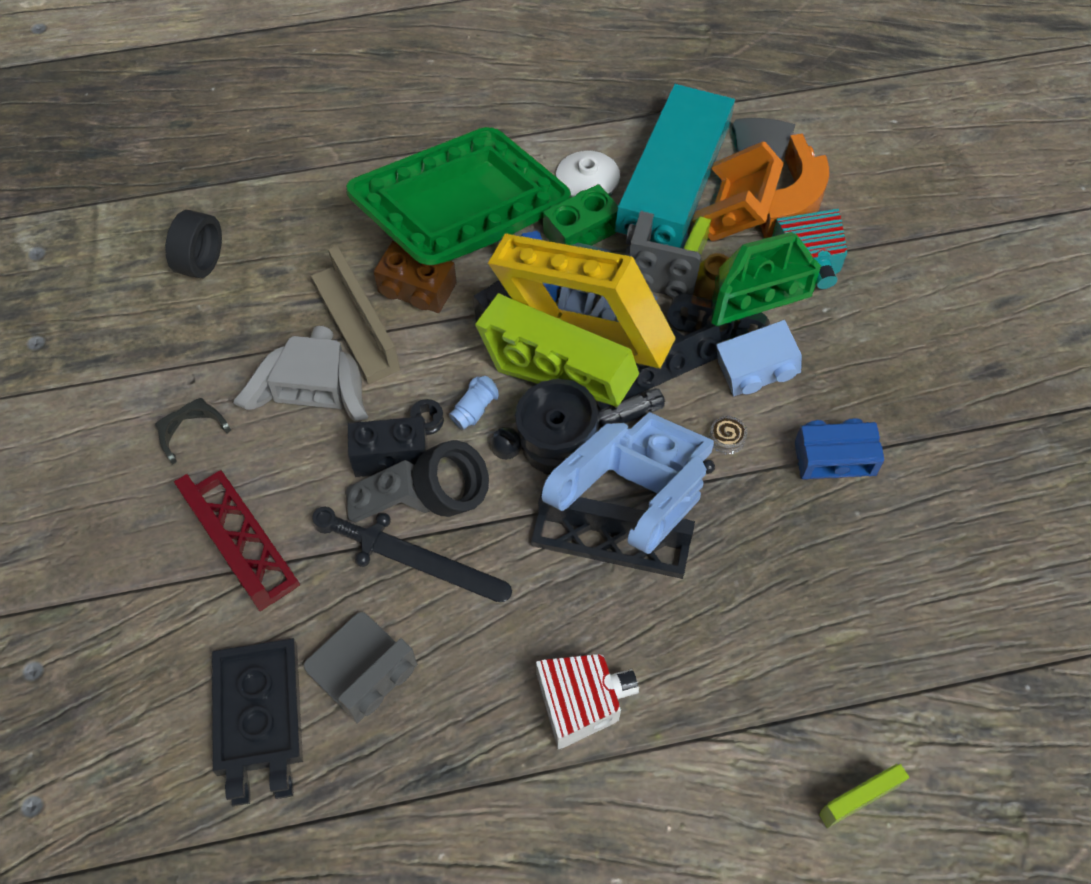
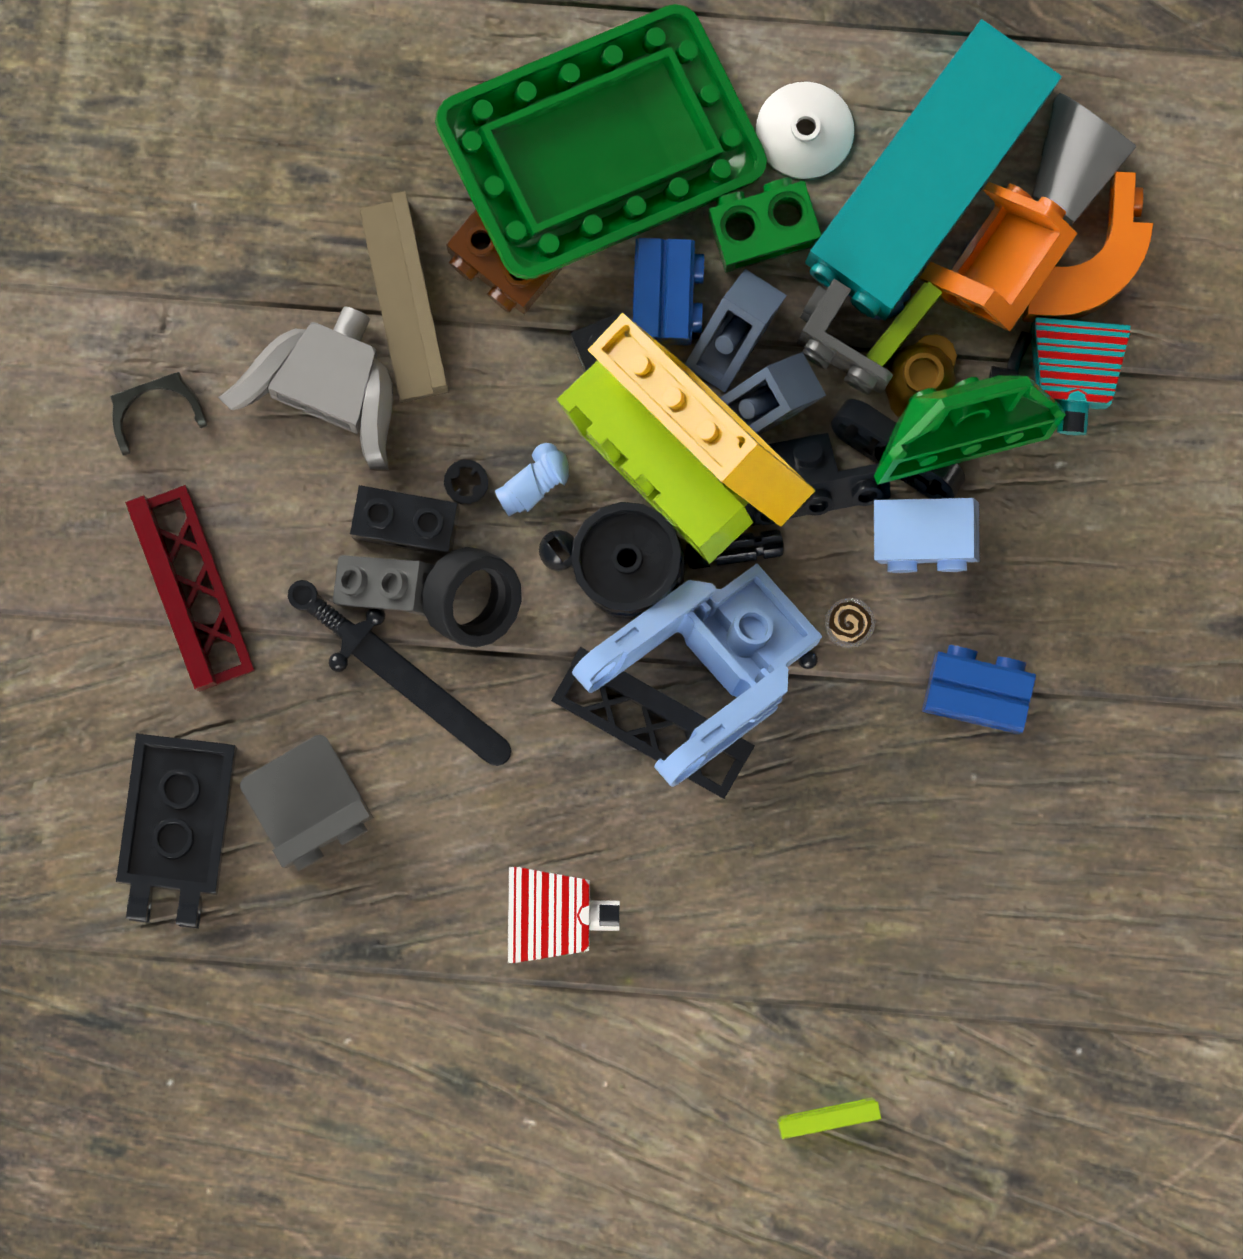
camera: 15 degrees right, 25 degrees up
(193, 243) = (206, 119): black tyre -> none

